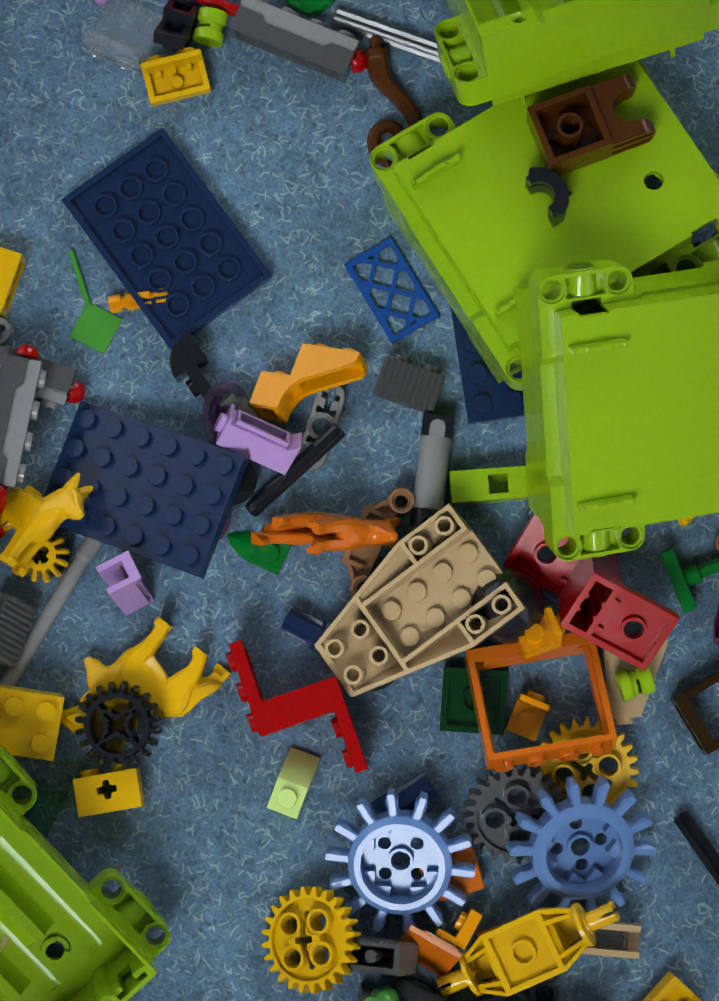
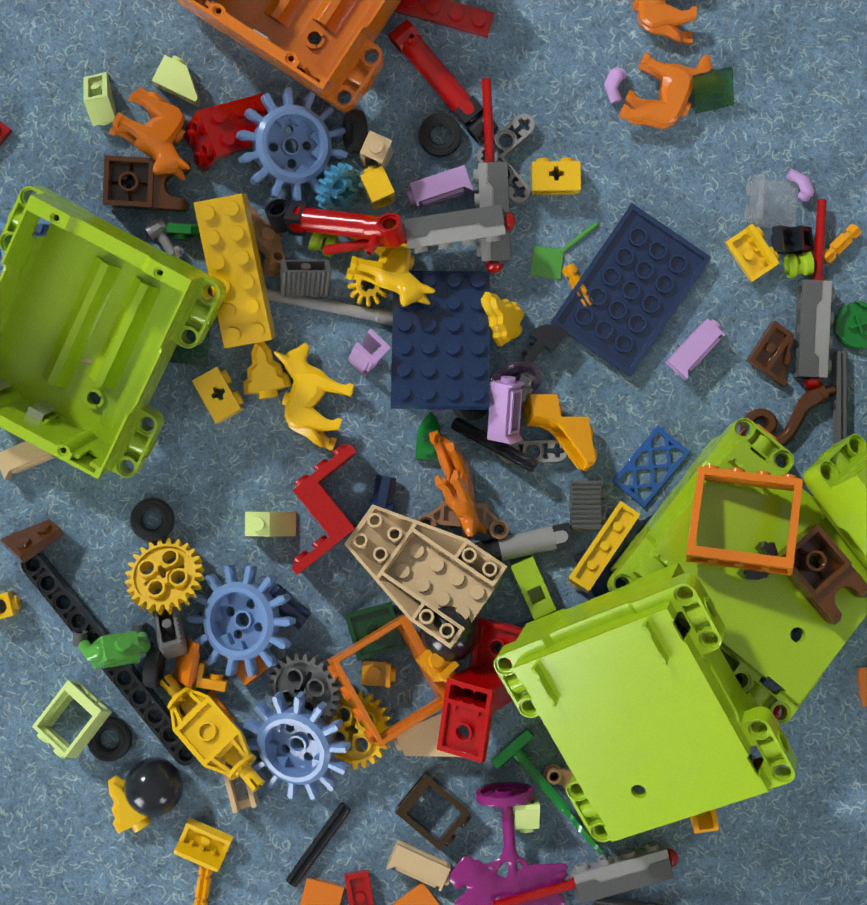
camera: 55 degrees right, 5 degrees up
(108, 714) = (260, 395): black gear -> none
(143, 403) = (503, 318): none -> yellow rock
(215, 937) = (141, 509): none -> black tyre
(266, 185) = (695, 348): none -> lavender window
(306, 95) = (773, 353): none -> reddish brown wing
(470, 382) = (603, 547): none -> yellow piece
(535, 213) = (740, 559): none -> orange window
(629, 687) = (426, 743): lime wheel -> none

